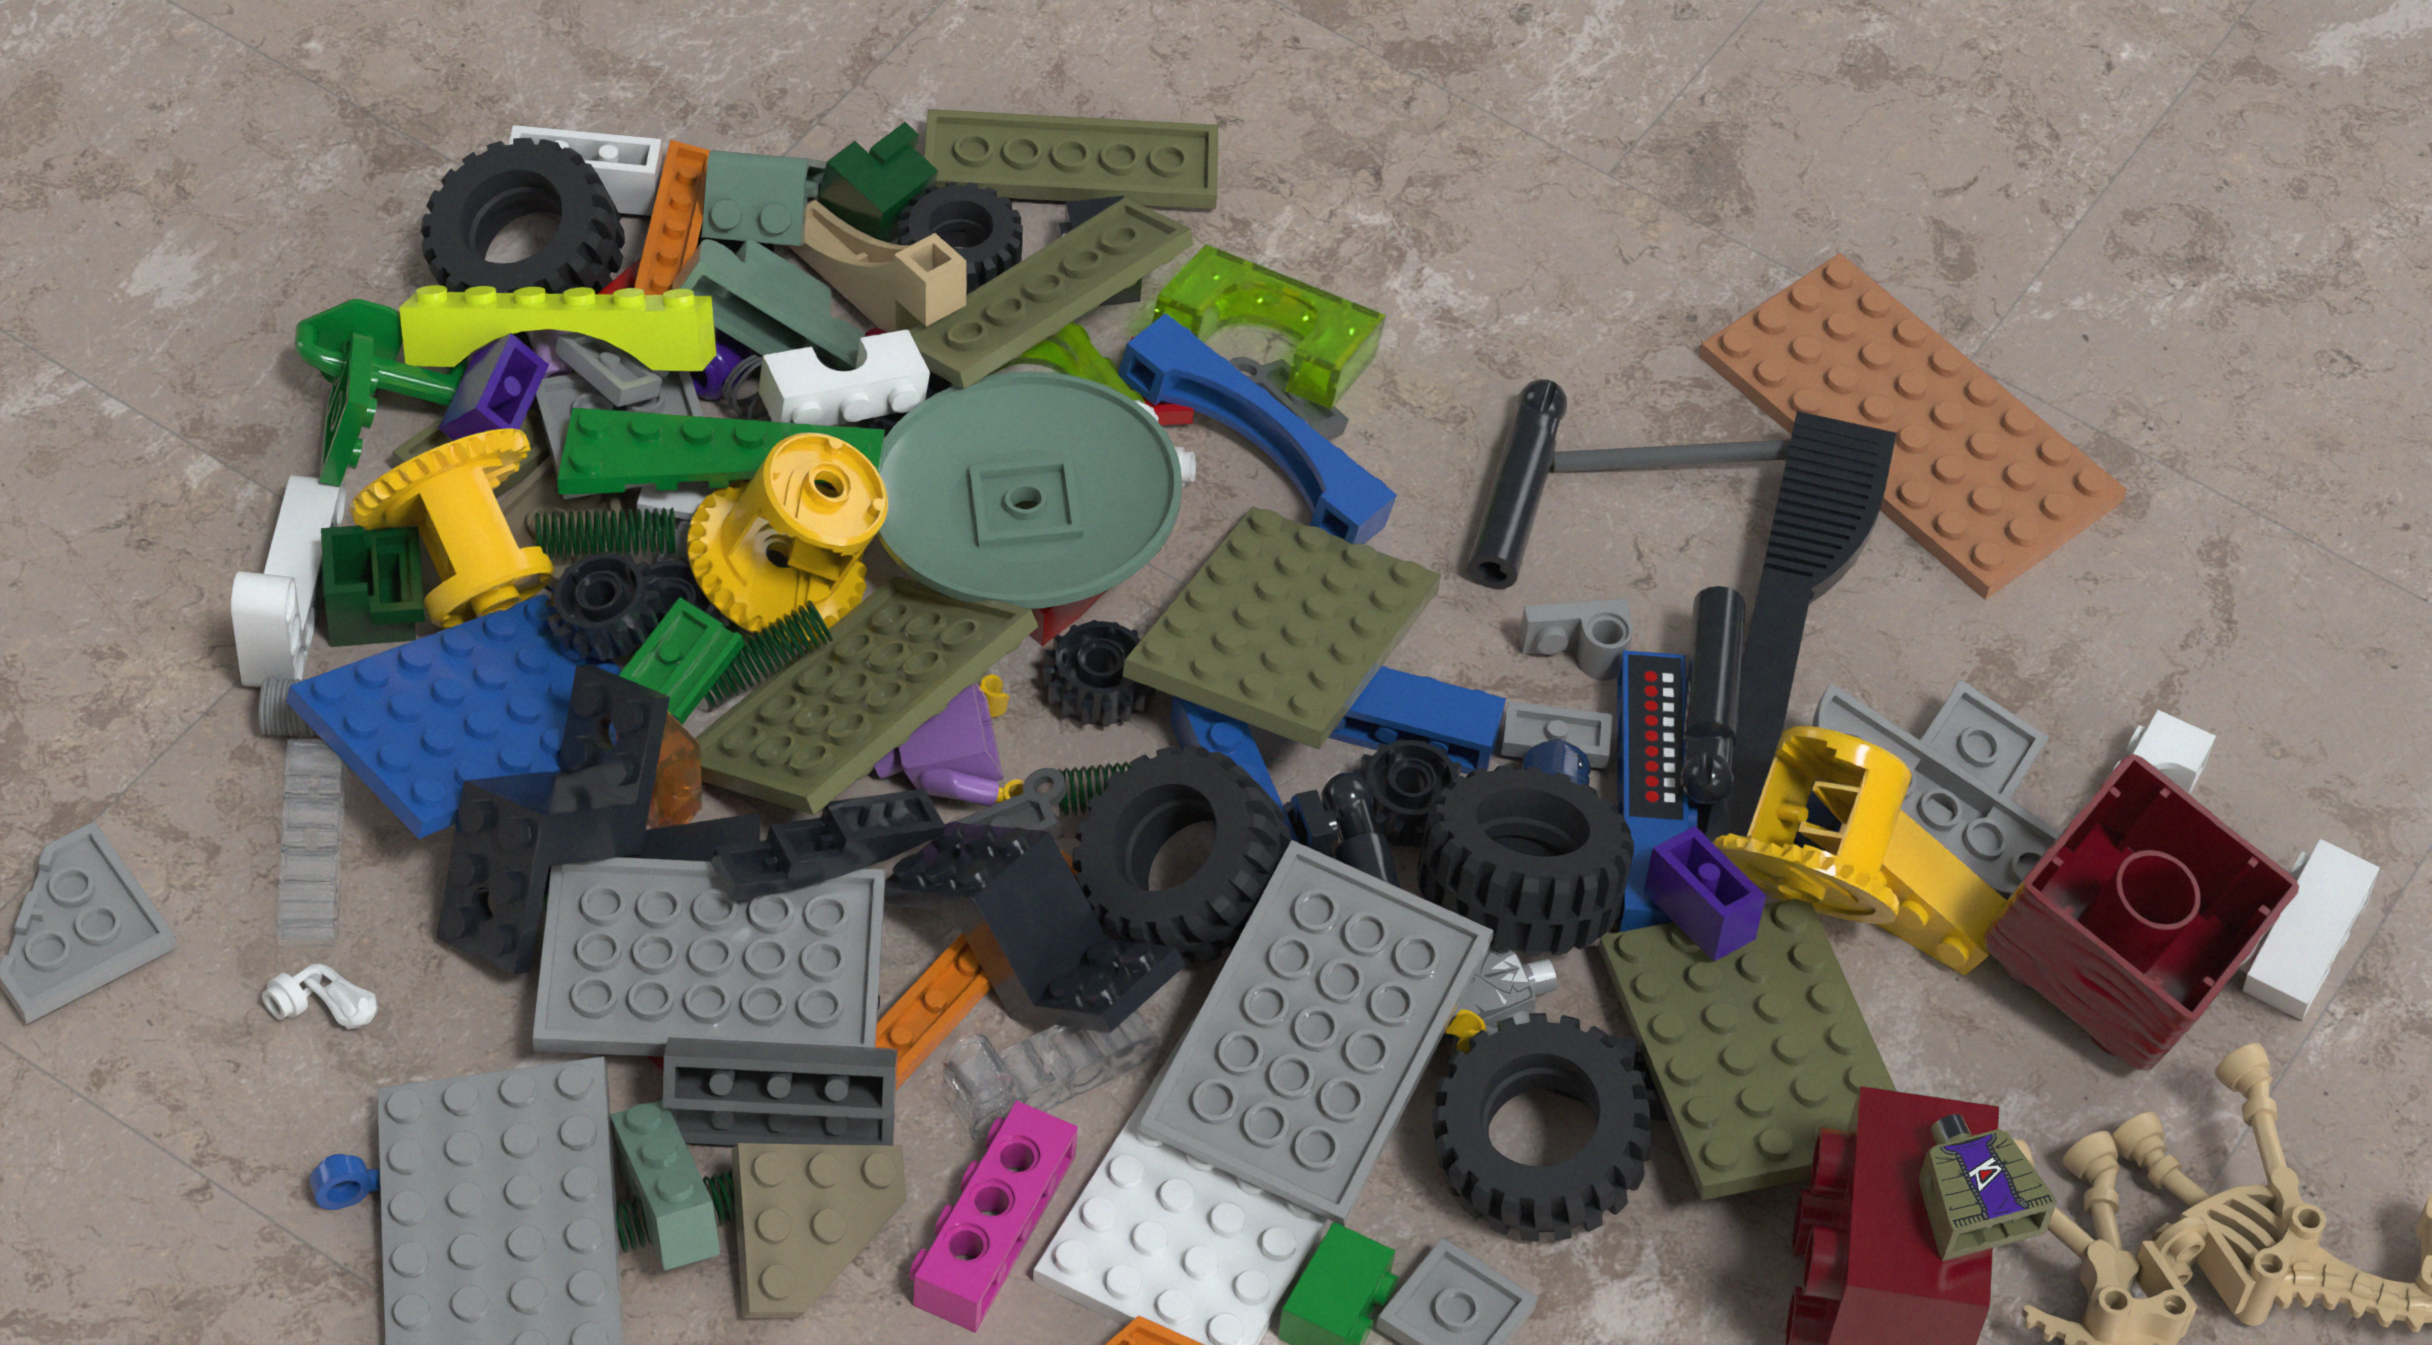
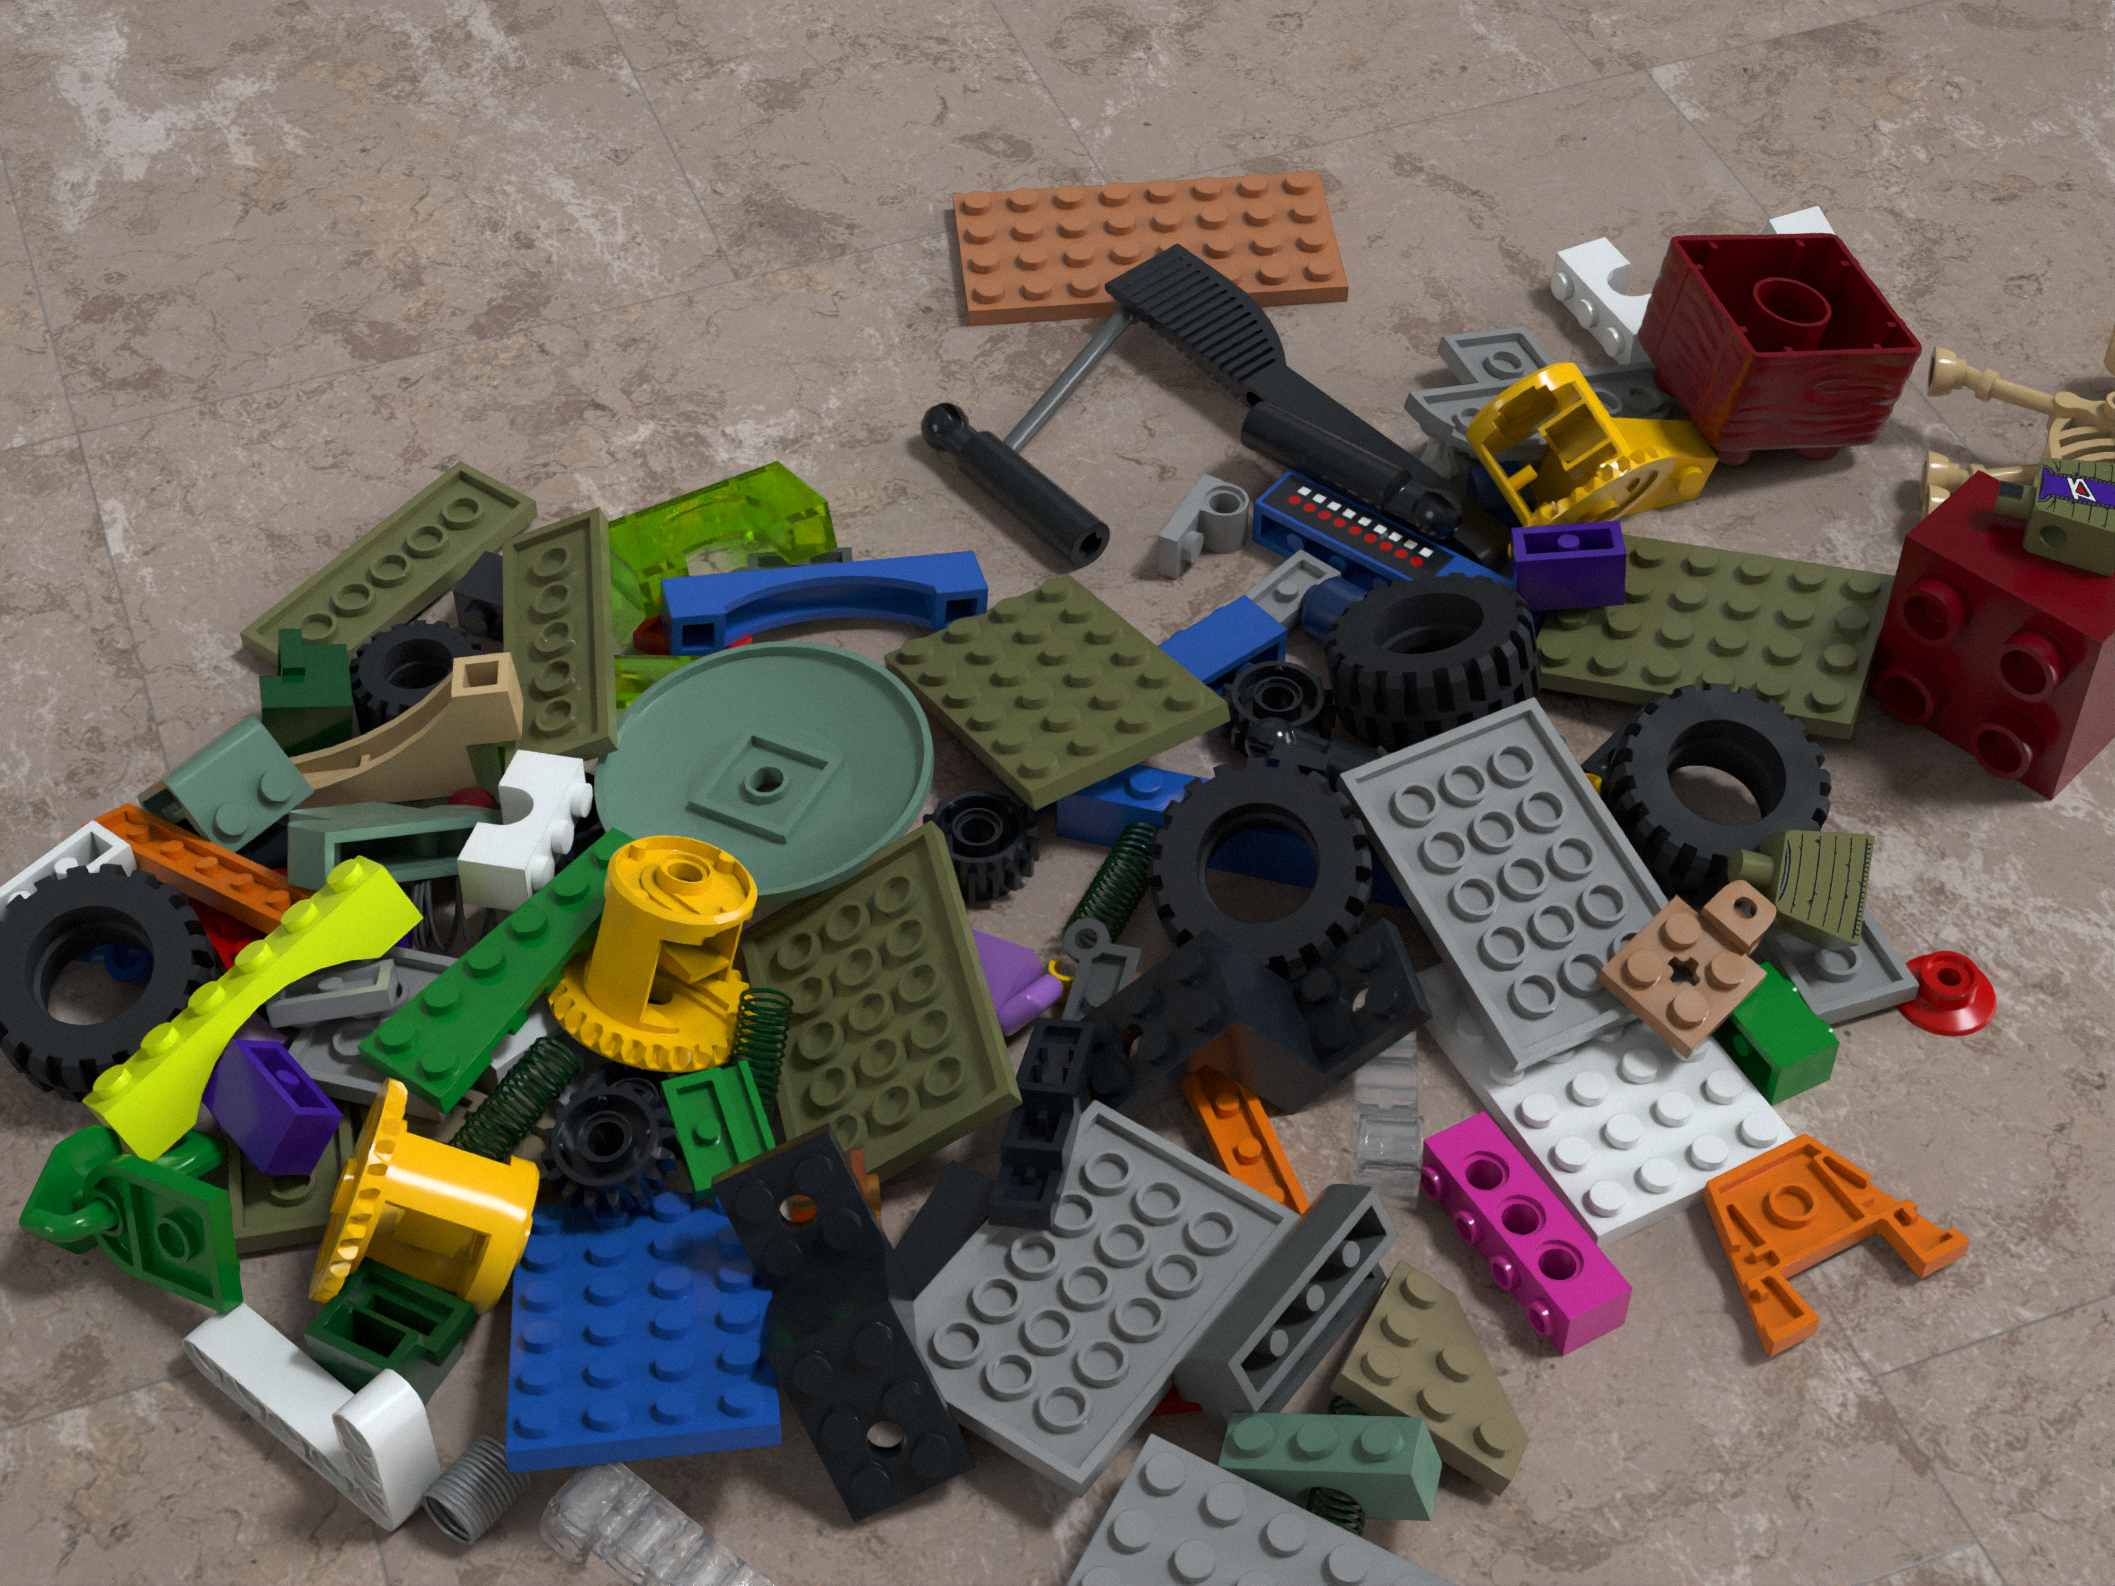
camera: 50 degrees left, 5 degrees down
(1354, 1198) = (1708, 944): none -> medium nougat plate
(1474, 1227) = (1813, 882): none -> olive torso

